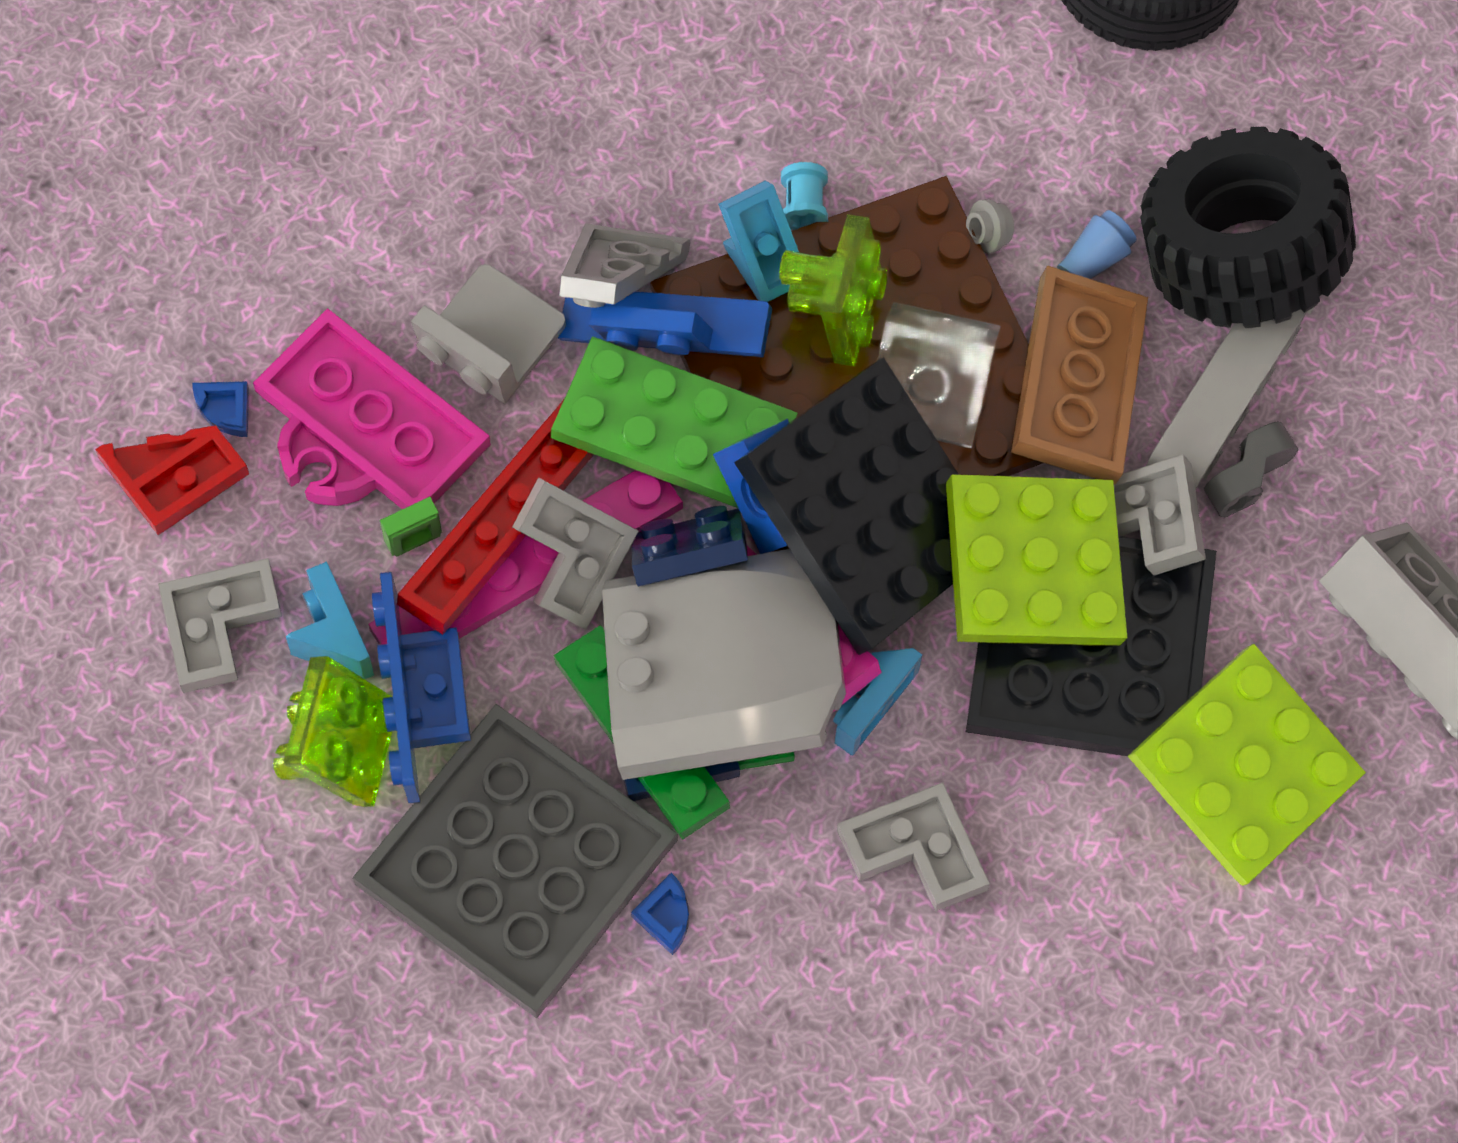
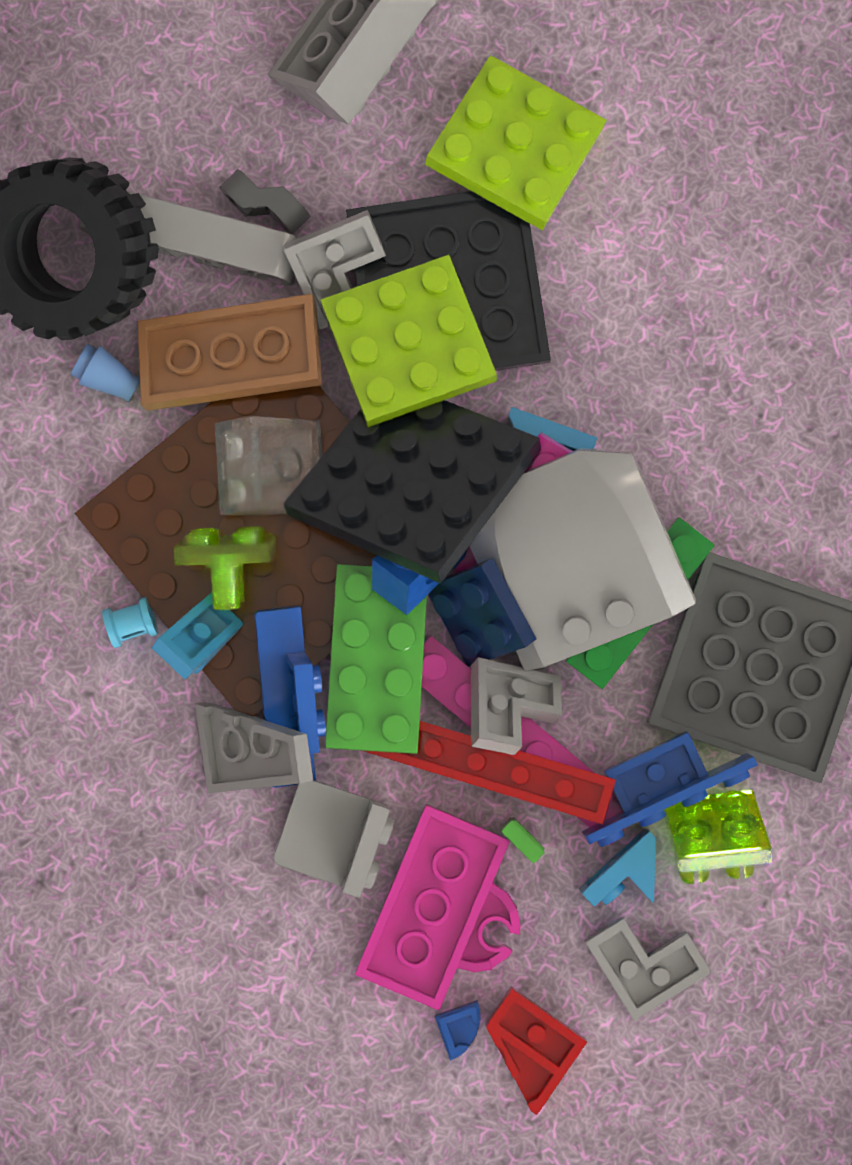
camera: 105 degrees left, 20 degrees up
(664, 913) = (765, 543): blue tile -> none
(922, 831) = (643, 372): light grey plate -> none
(991, 224) = (110, 463): light grey plate -> none

